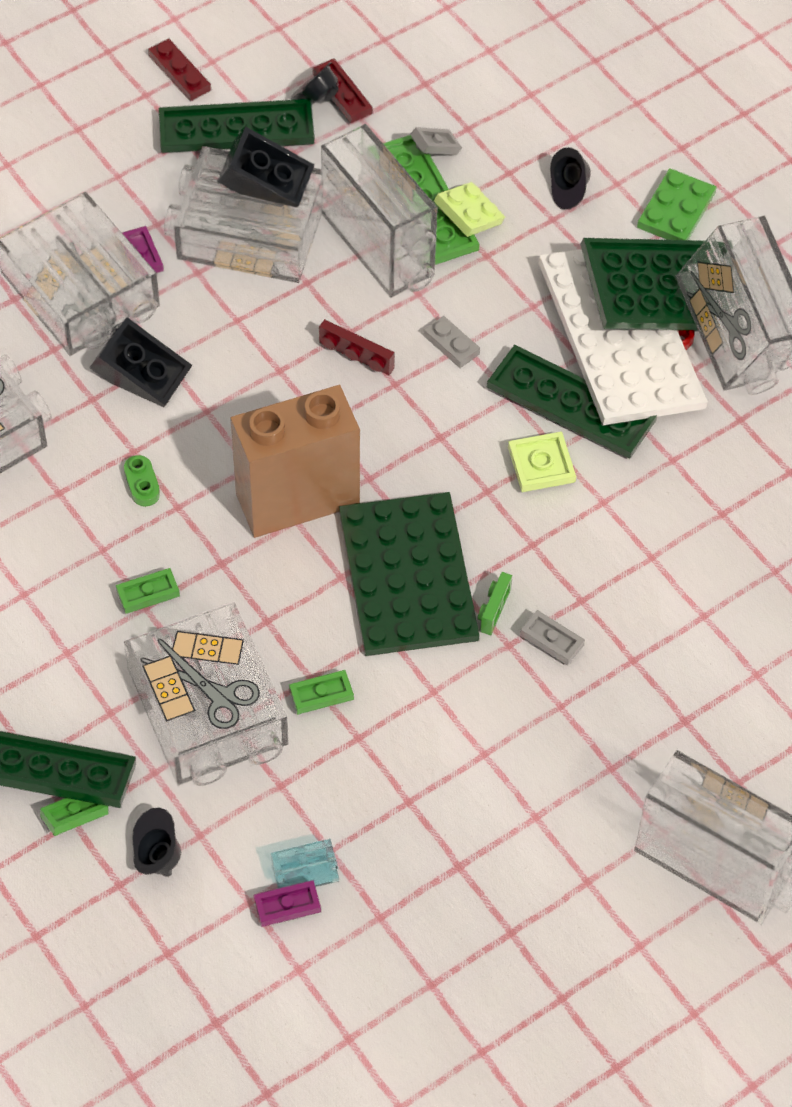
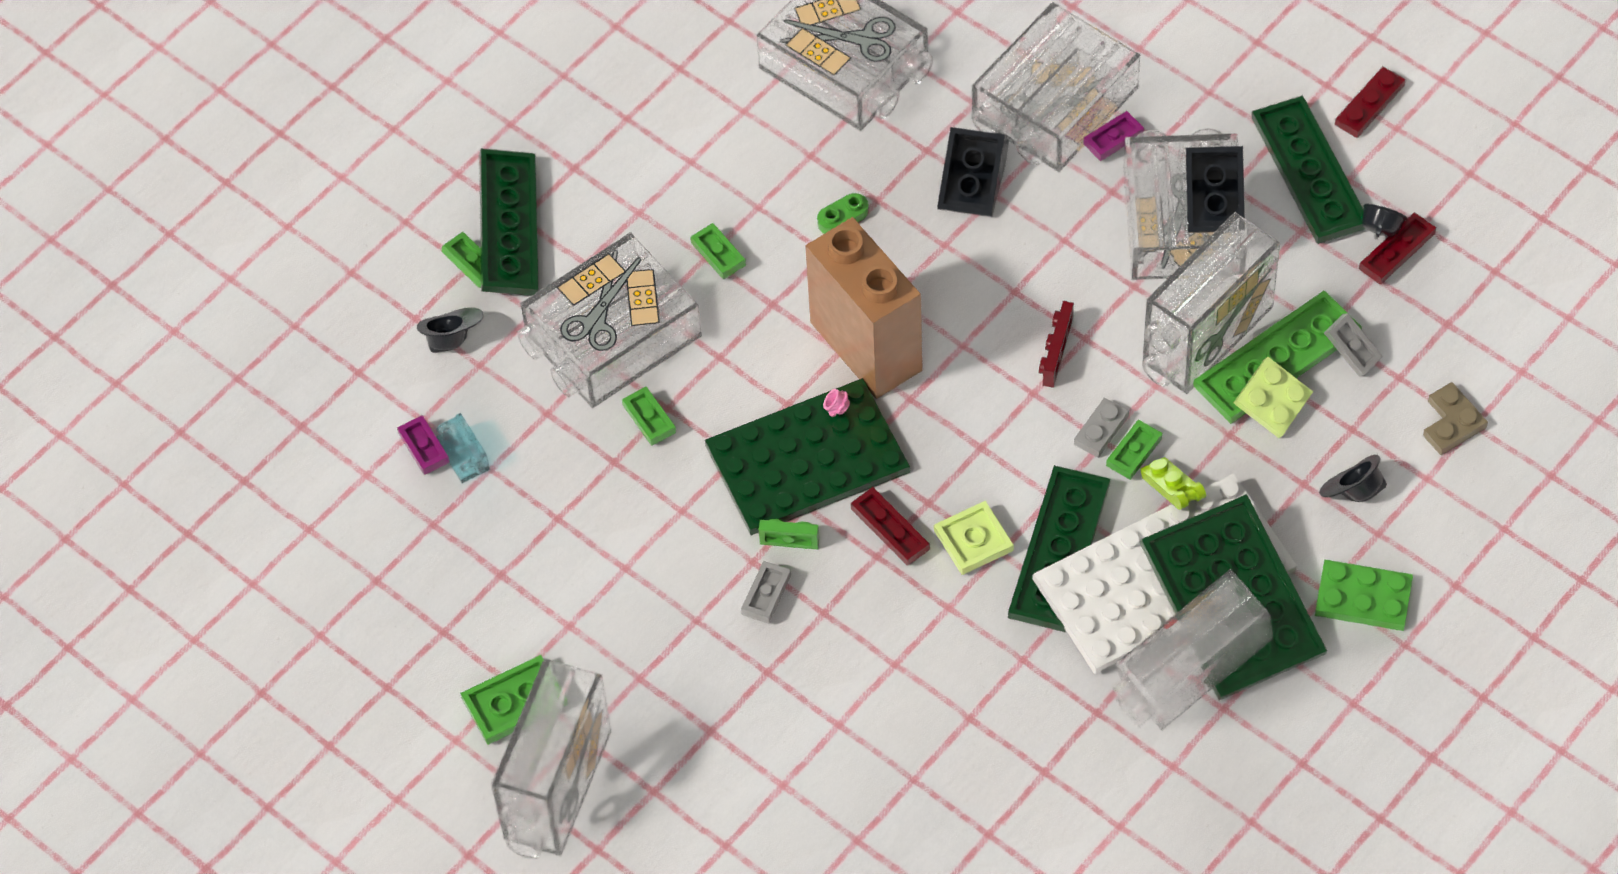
camera: 80 degrees right, 0 degrees up
(365, 528) = (836, 402): none -> bright pink plate
(486, 322) = (1134, 449): none -> bright green plate
(509, 522) = (890, 526): none -> dark red plate
(525, 99) = (1458, 421): none -> dark tan plate
(538, 298) = (1172, 483): none -> lime plate
(614, 879) = (500, 700): none -> bright green plate

